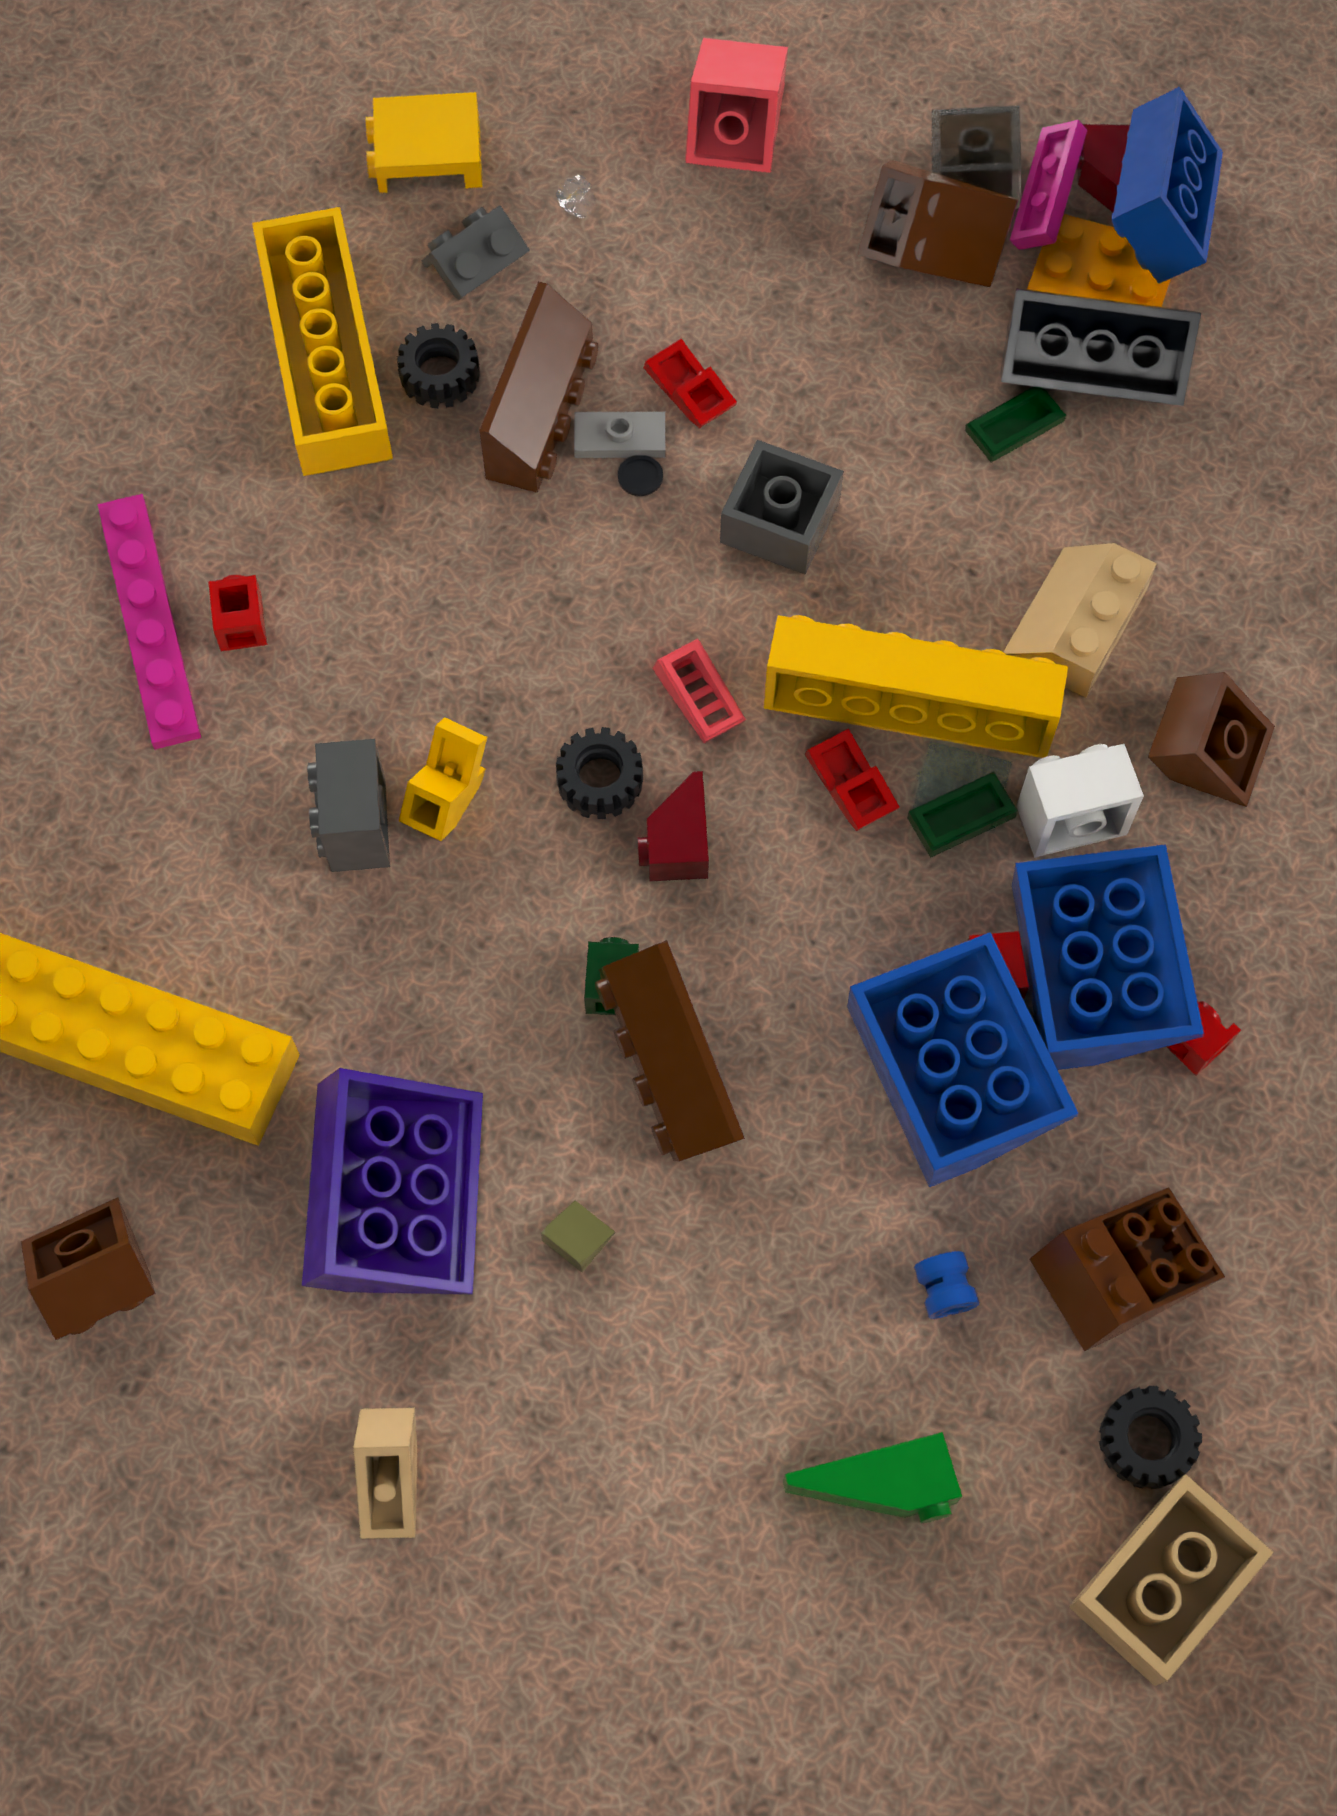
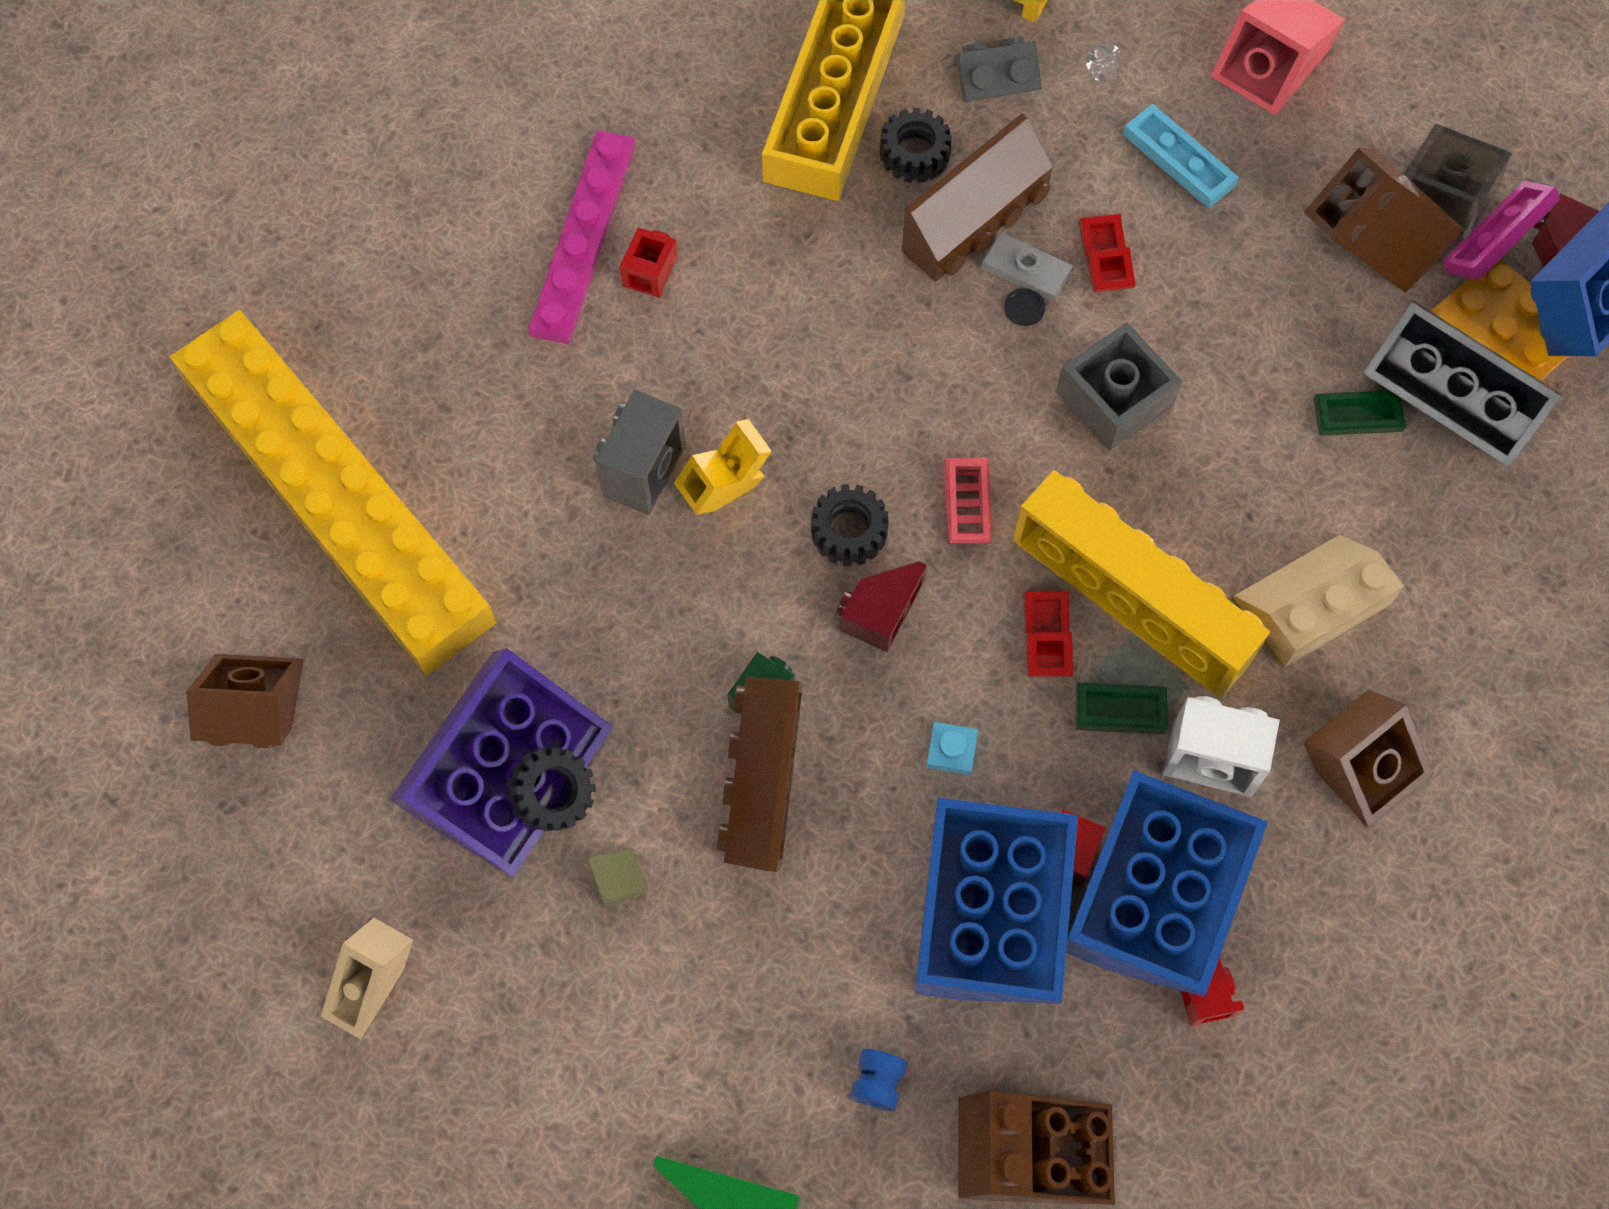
camera: 30 degrees right, 0 degrees up
(486, 1170) = (578, 789): none -> black tyre
(704, 254) = (1180, 156): none -> medium azure plate
(826, 936) = (952, 748): none -> medium azure plate

